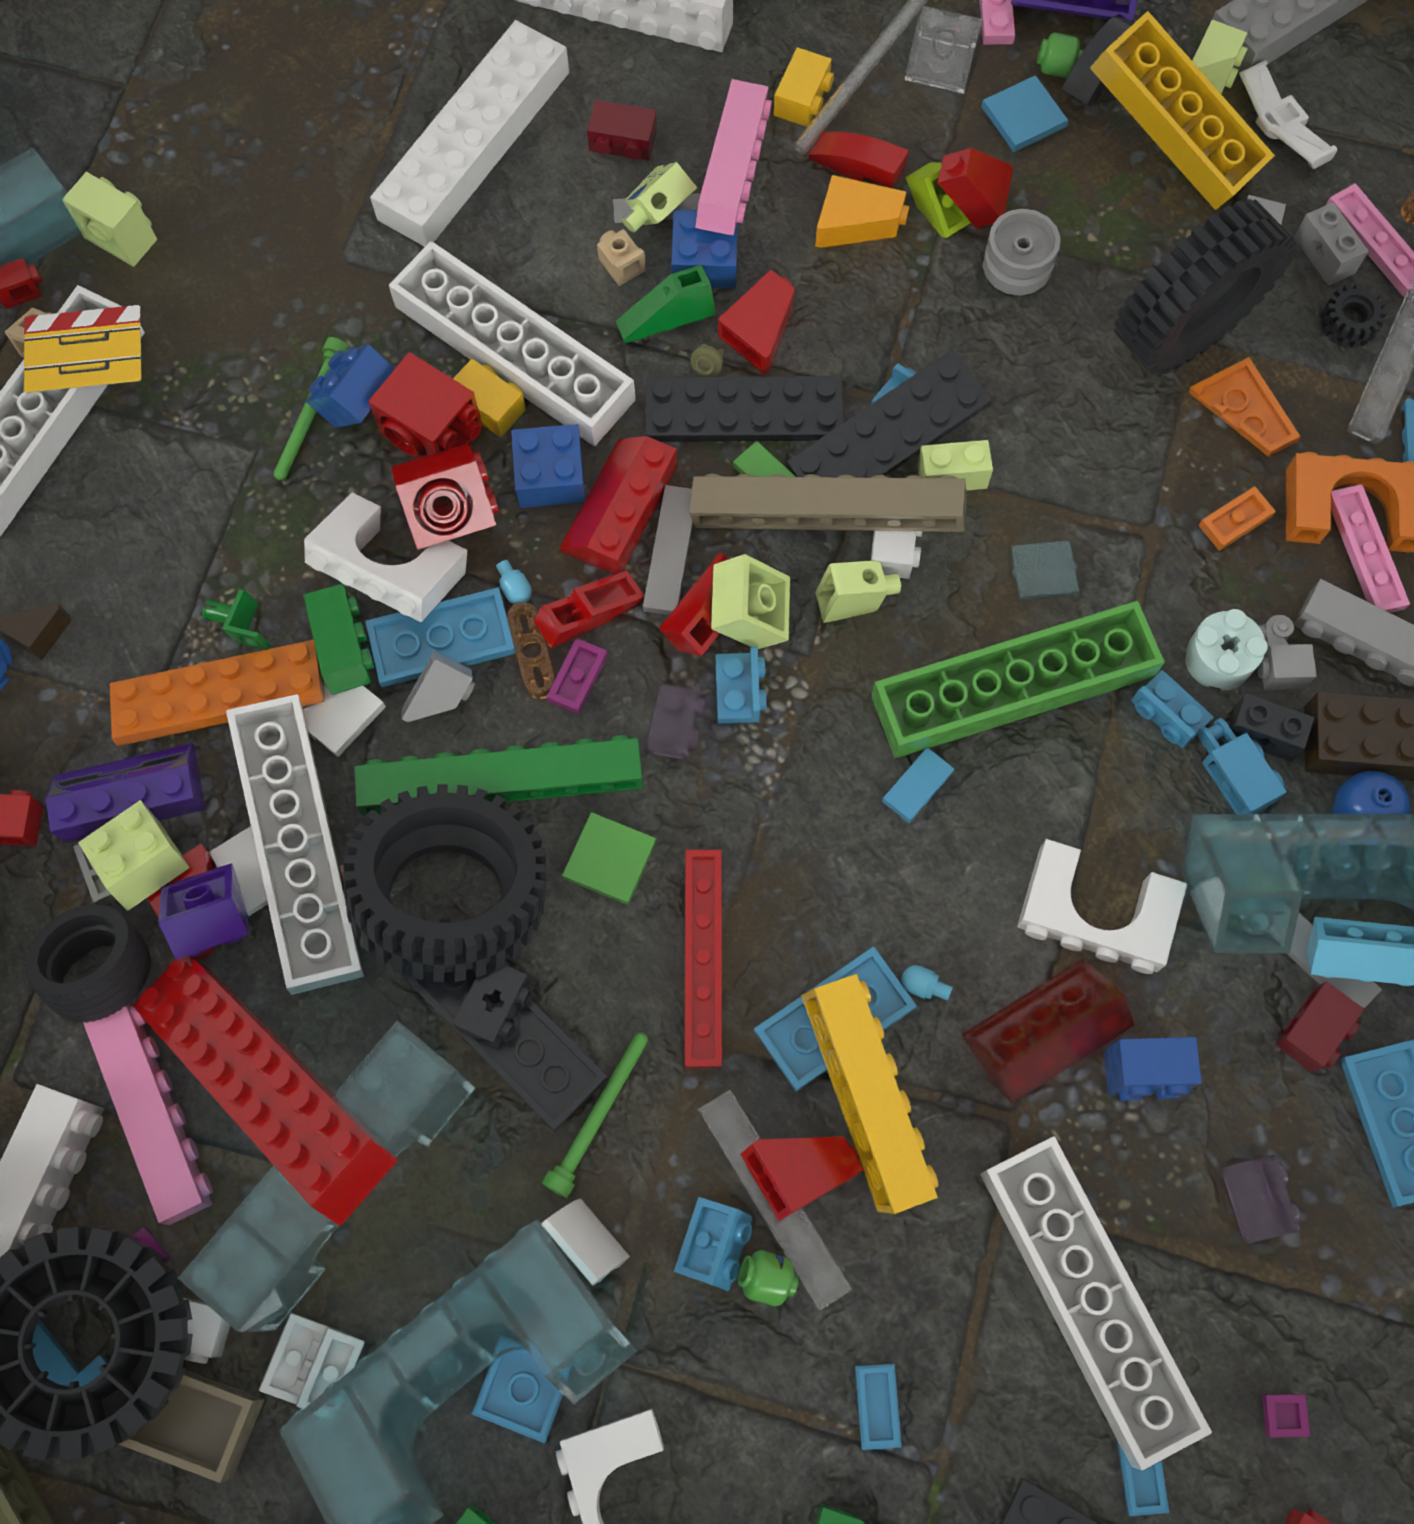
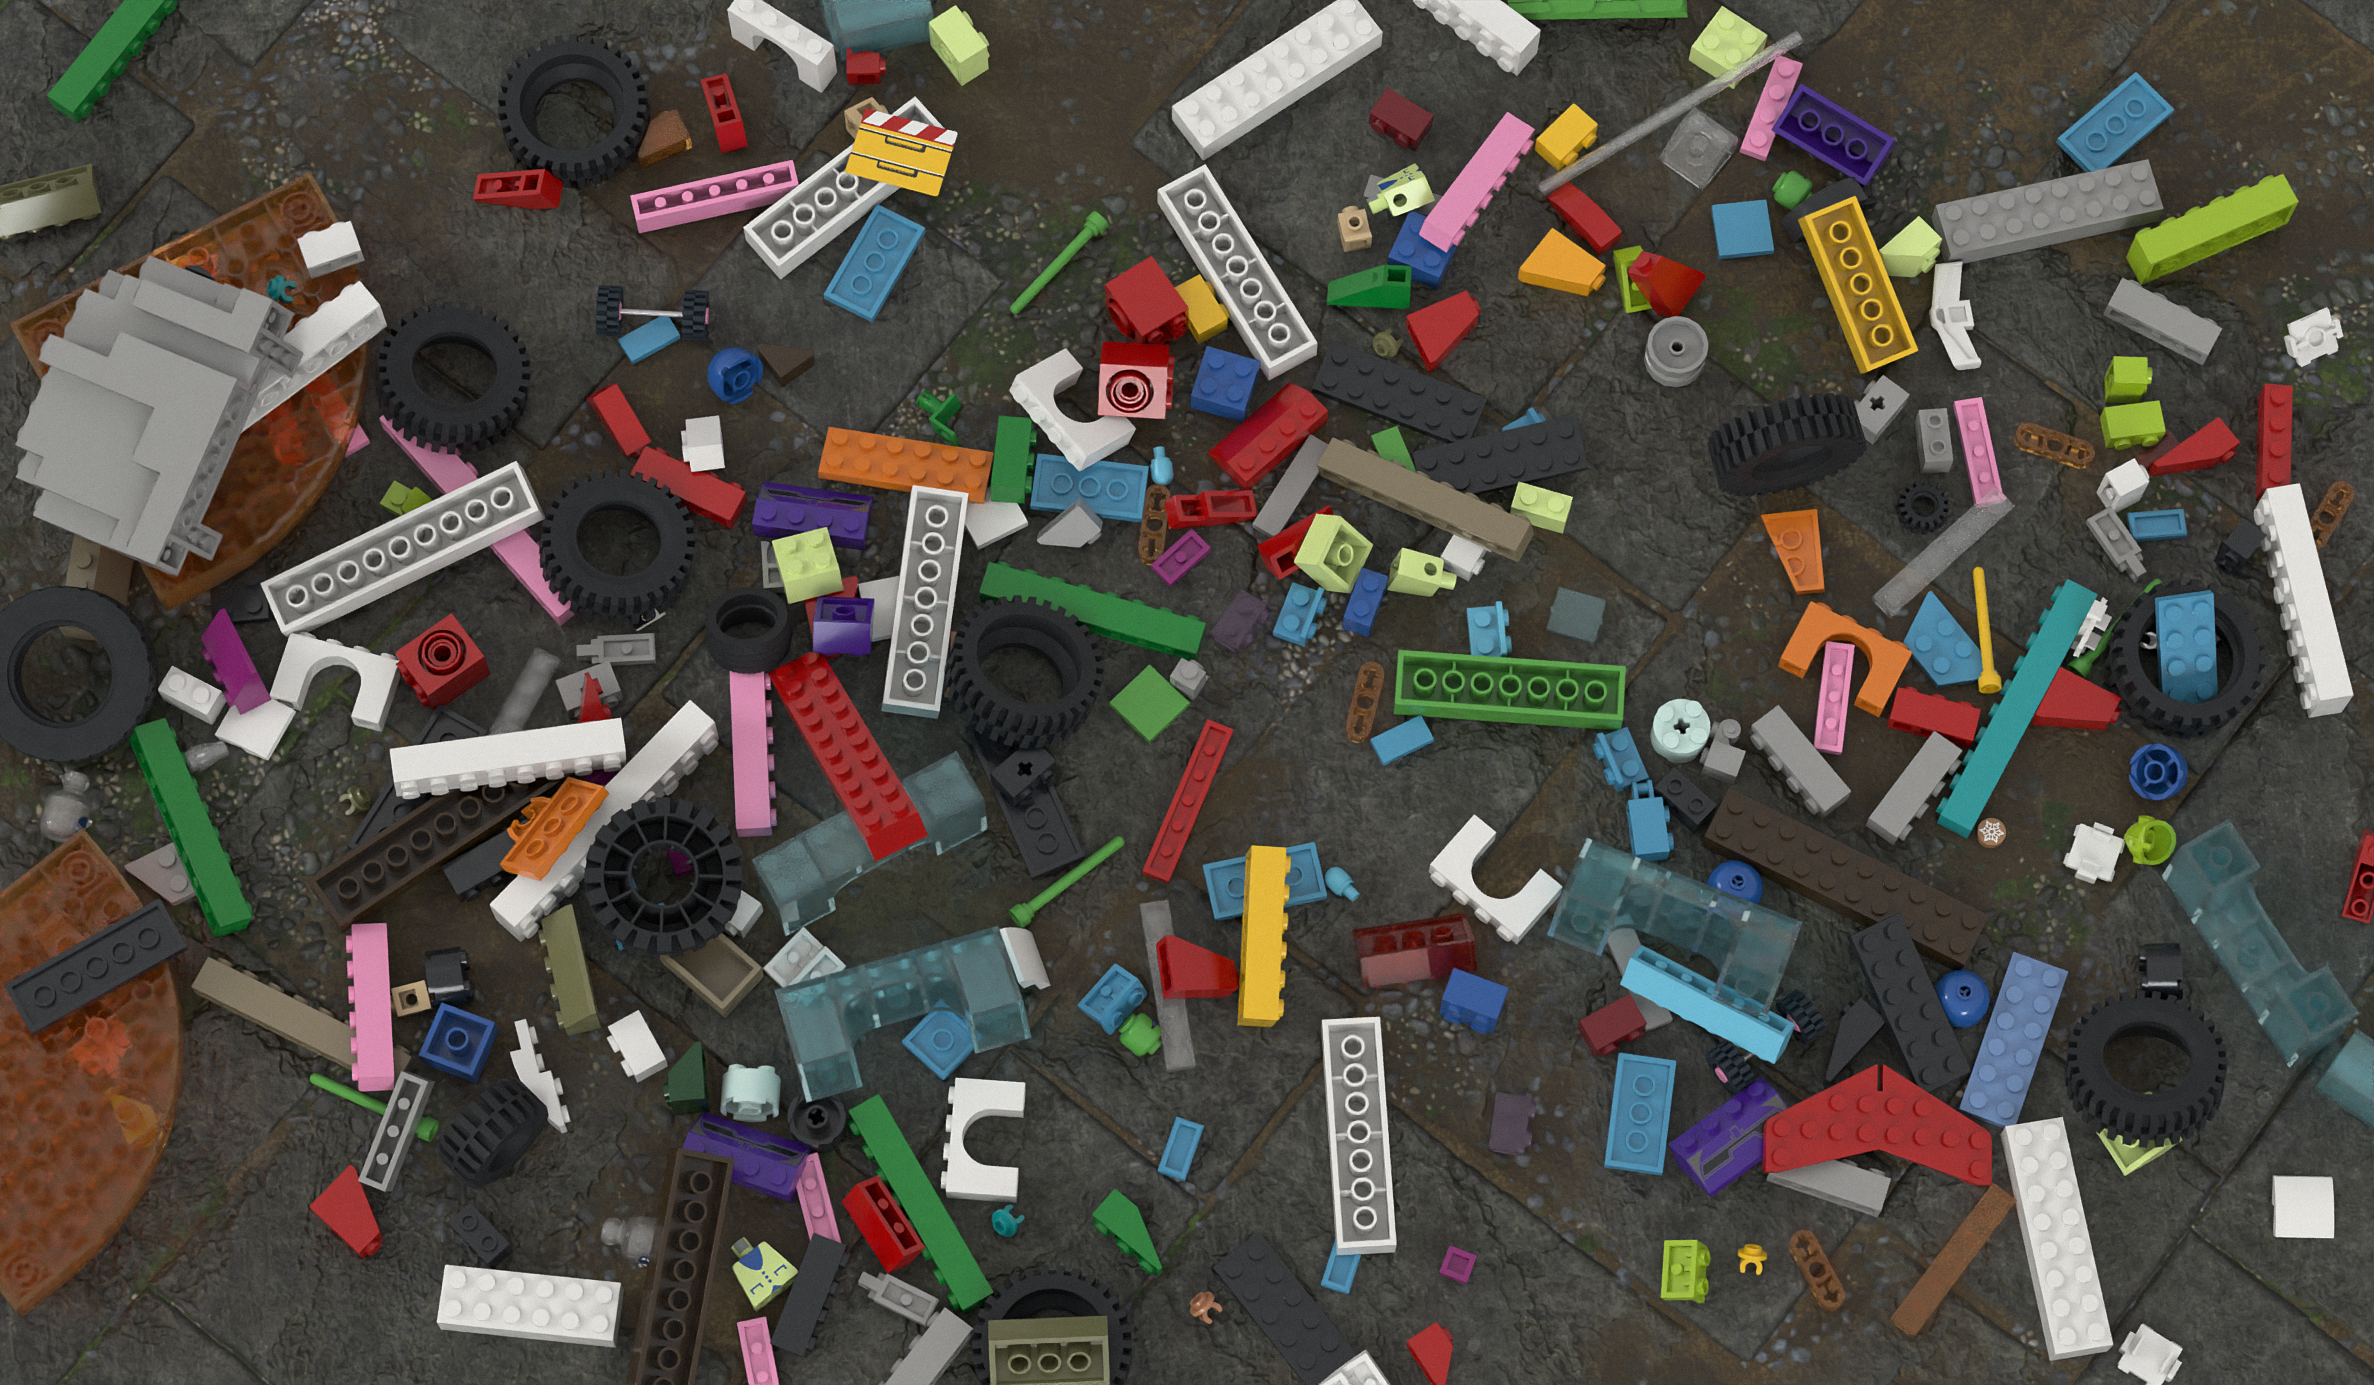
camera: 20 degrees right, 0 degrees up
(99, 483) = (874, 263): none -> dark azure plate
(349, 385) = (1096, 261): blue brick -> none
(643, 810) = (1188, 678): none -> light grey brick
(808, 644) = (1365, 602): none -> blue brick
(851, 783) = (1358, 692): none -> clear orange beam
(959, 623) = (1488, 631): none -> medium azure bracket
(1237, 518) = (1744, 633): orange plate -> none

